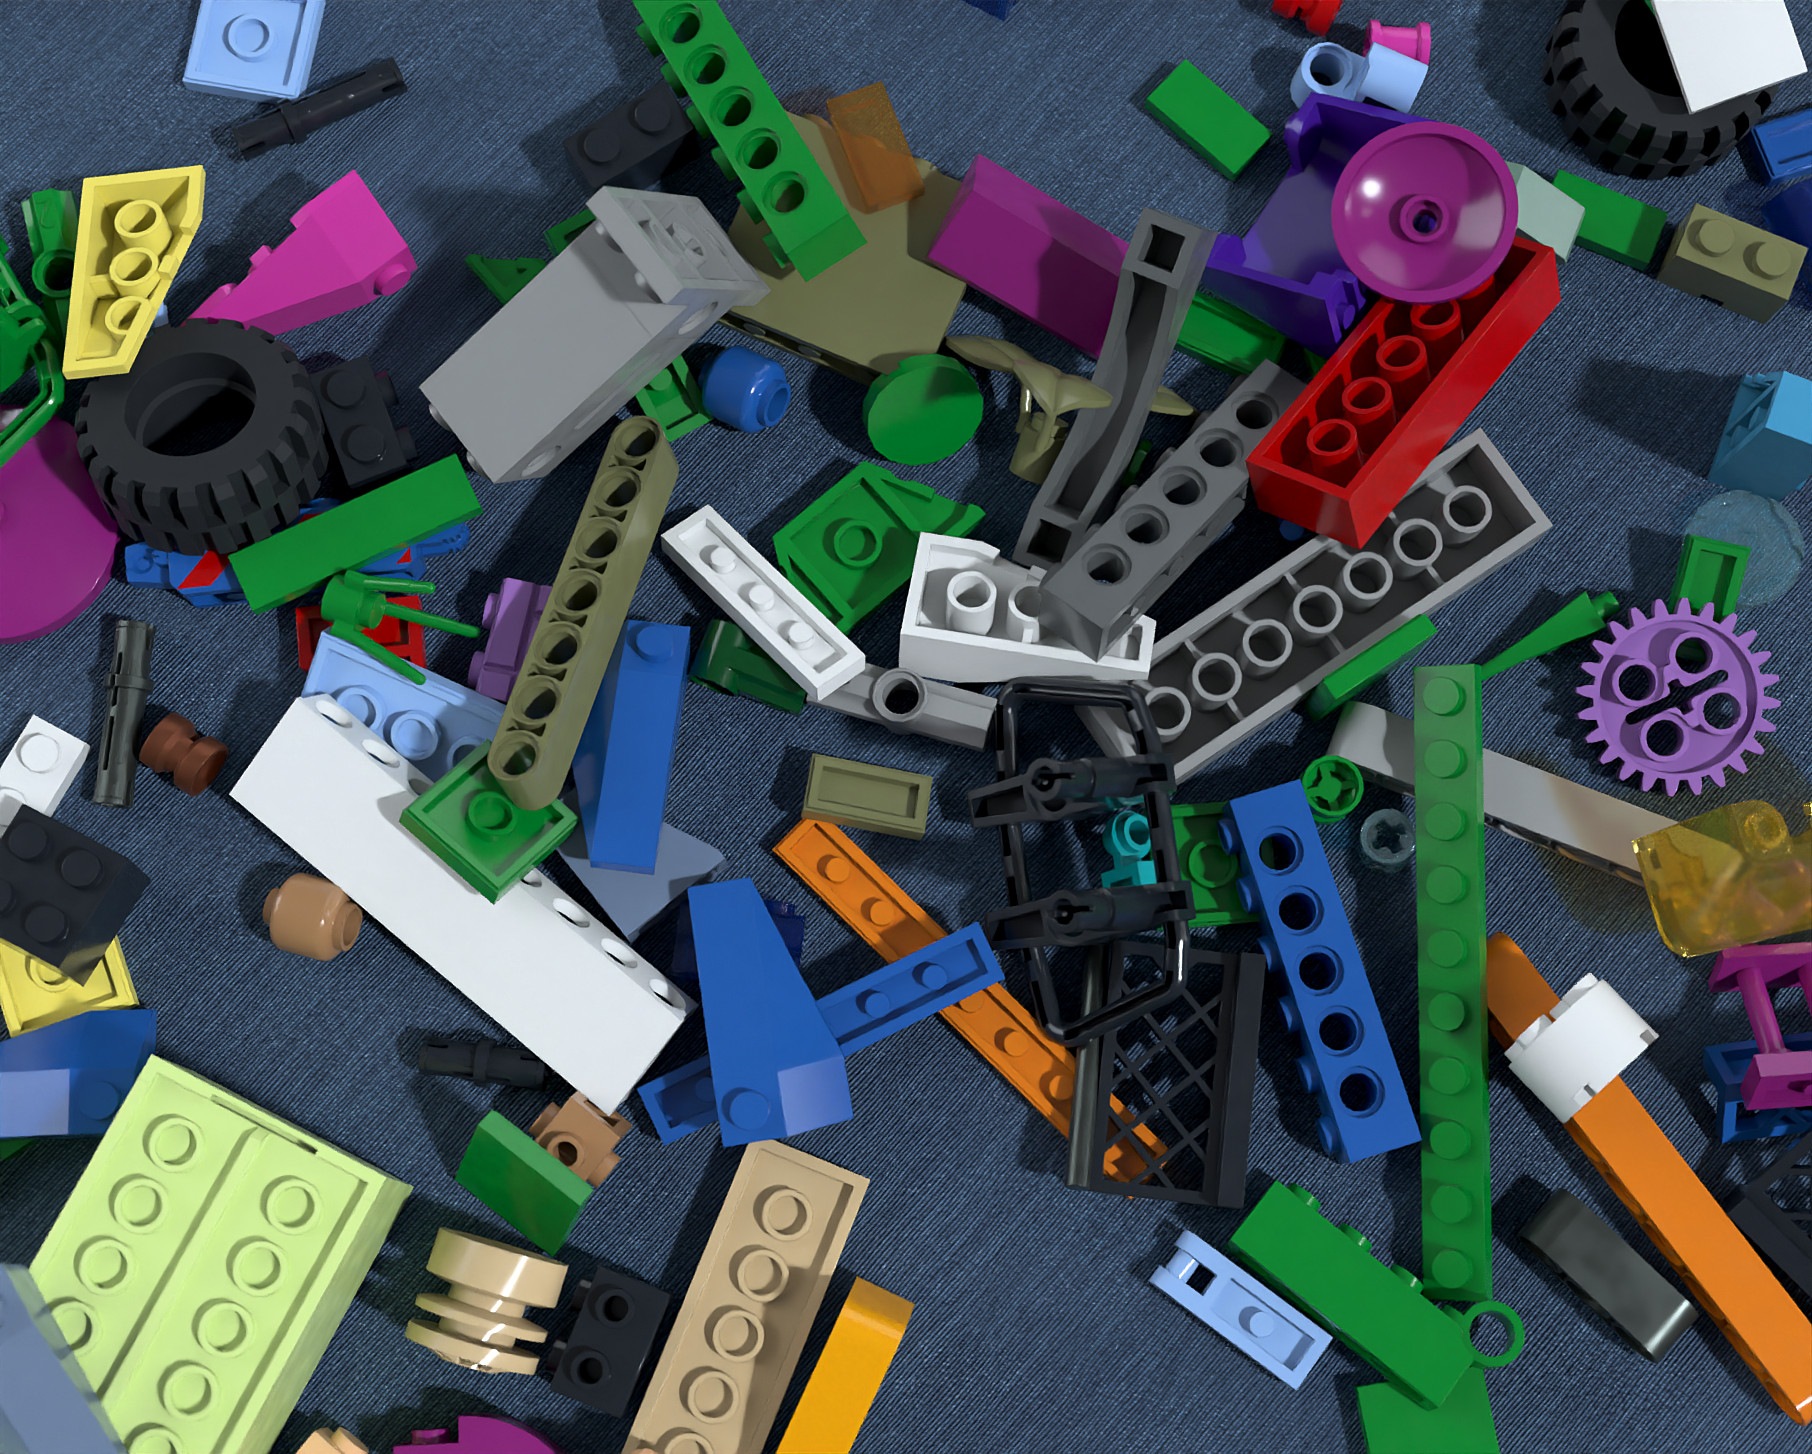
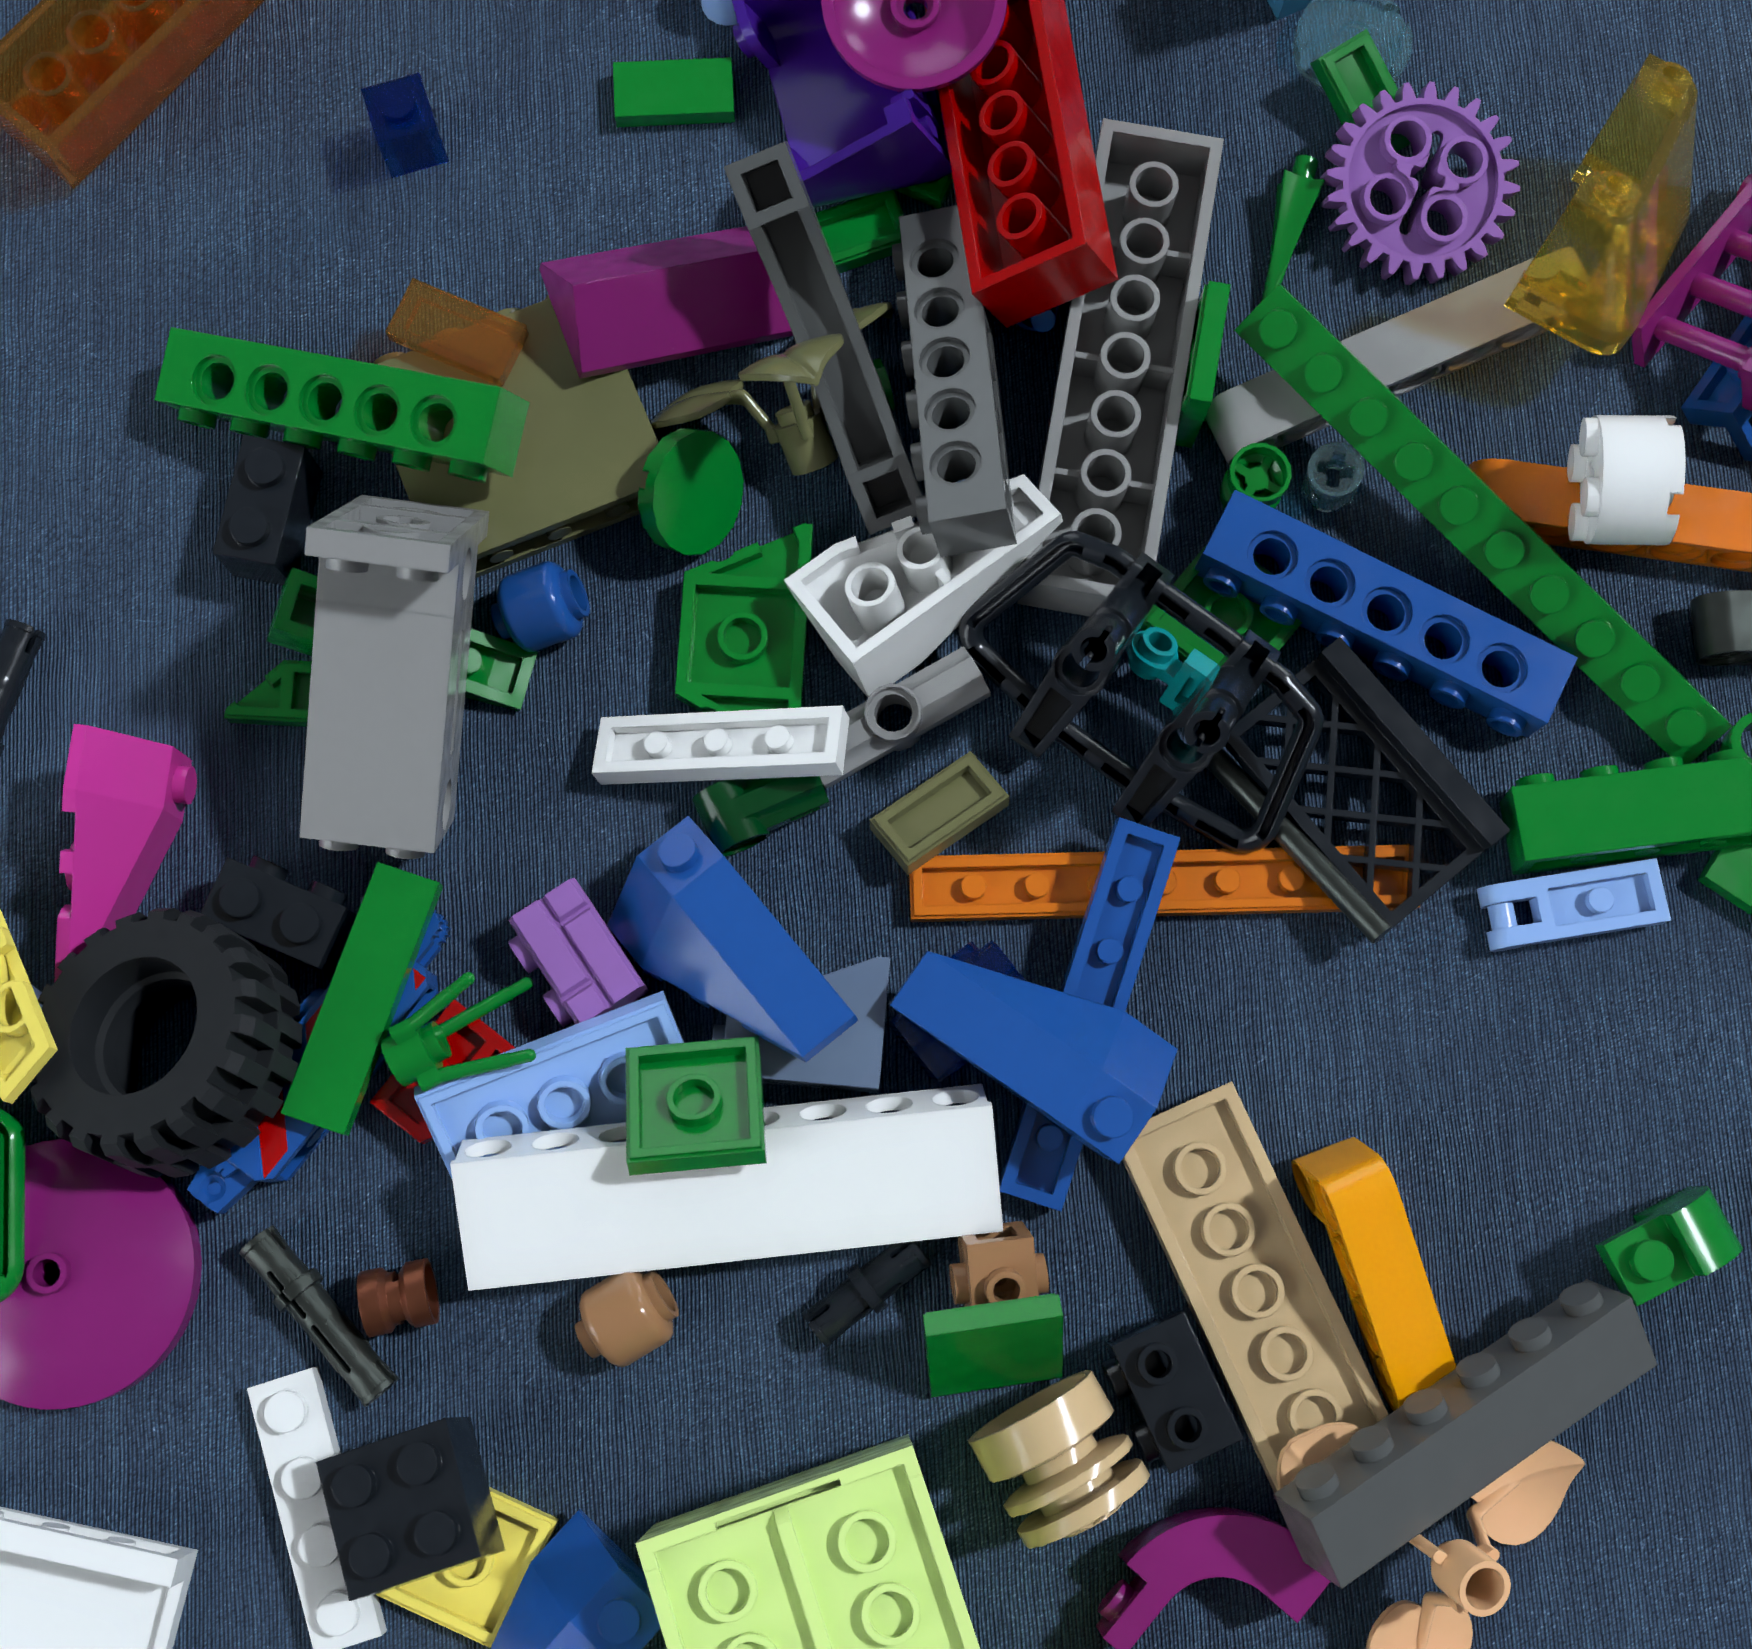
camera: 45 degrees left, 0 degrees up
(584, 614) = (618, 898): olive beam -> none

